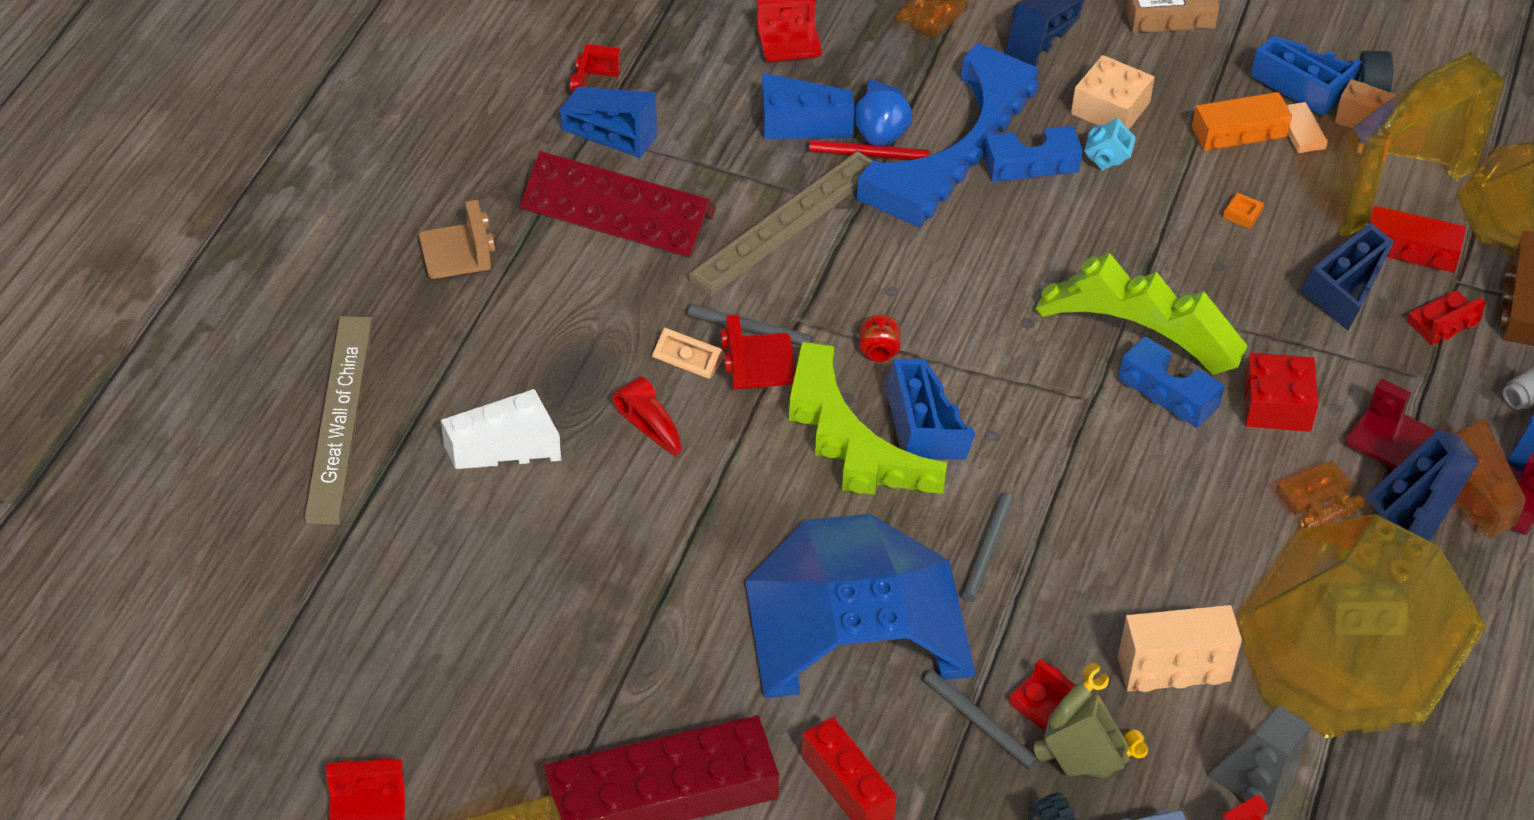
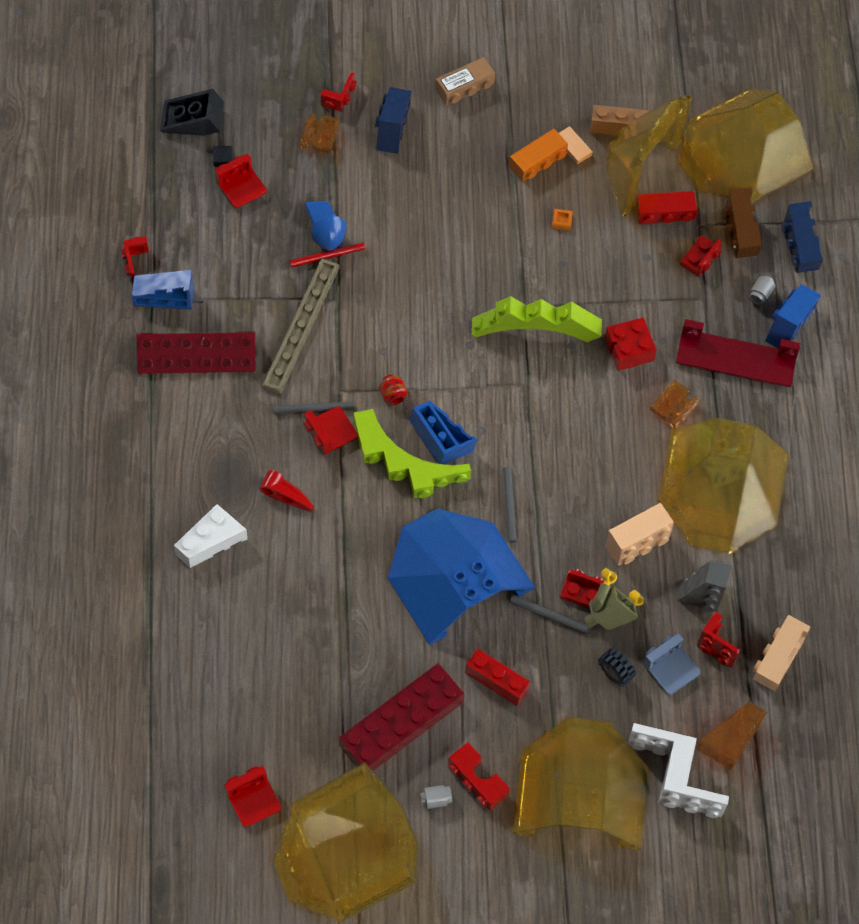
camera: 25 degrees left, 15 degrees up
(339, 421) = (107, 561): dark tan tile -> none
(459, 247) = (117, 417): medium nougat bracket -> none
(688, 353) = (287, 440): light nougat slope -> none
(805, 109) = (277, 240): blue wedge -> none
(918, 186) = (367, 274): blue arch -> none
(1012, 160) = (415, 233): blue arch -> none
(1109, 144) = (469, 202): medium azure brick -> none
(1112, 92) = (456, 163): light nougat brick -> none
(1189, 397) = (581, 366): blue arch -> none
(1304, 73) = (563, 107): blue wedge -> none
(1348, 273) = (641, 249): dark blue wedge -> none
(1377, 69) = (604, 92): black wheel -> none
(1425, 484) = (731, 386): dark blue wedge -> none
(1491, 491) = (756, 364): clear orange wedge -> none

